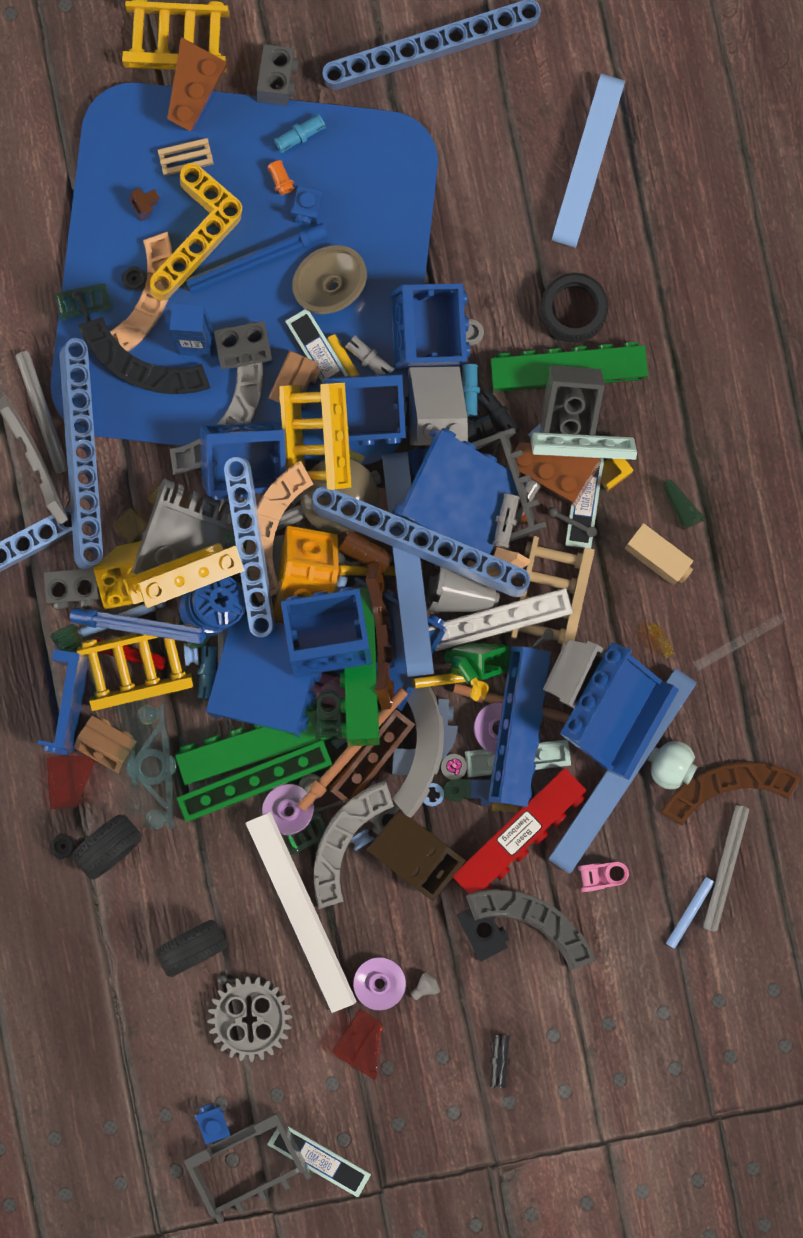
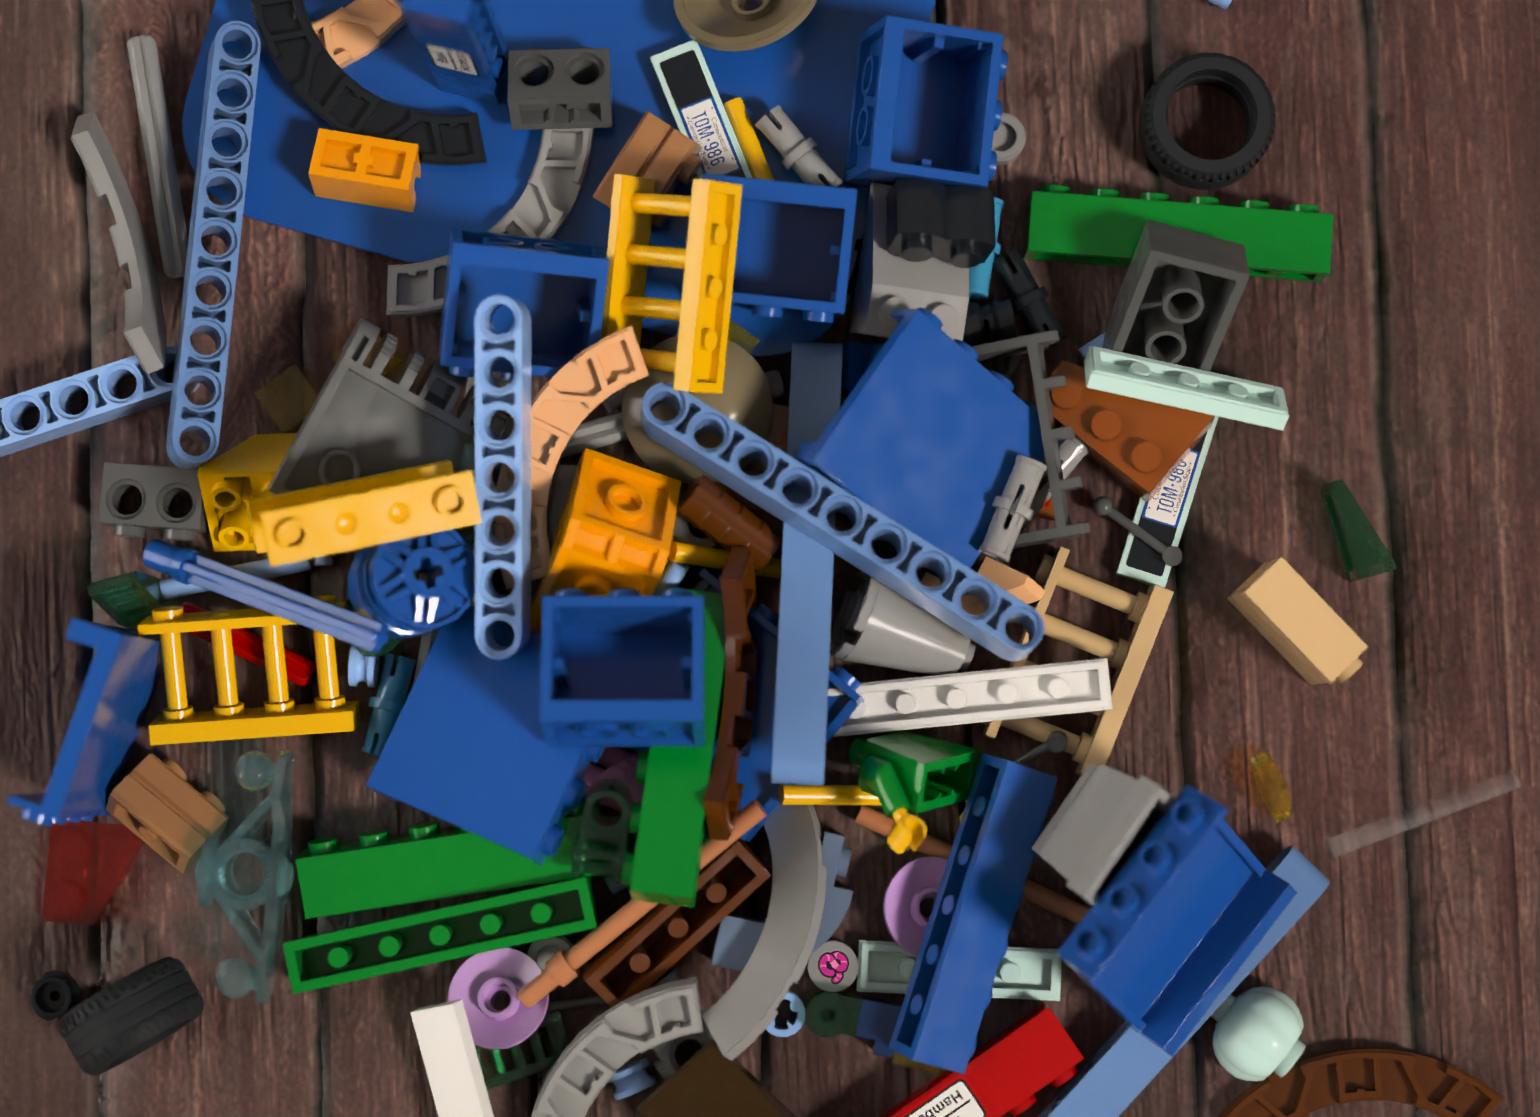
camera: 10 degrees right, 0 degrees up
(150, 402) = (365, 170): none -> light orange hinge
(446, 382) = (940, 222): none -> black brick
(614, 472) = (1234, 447): yellow panel -> none

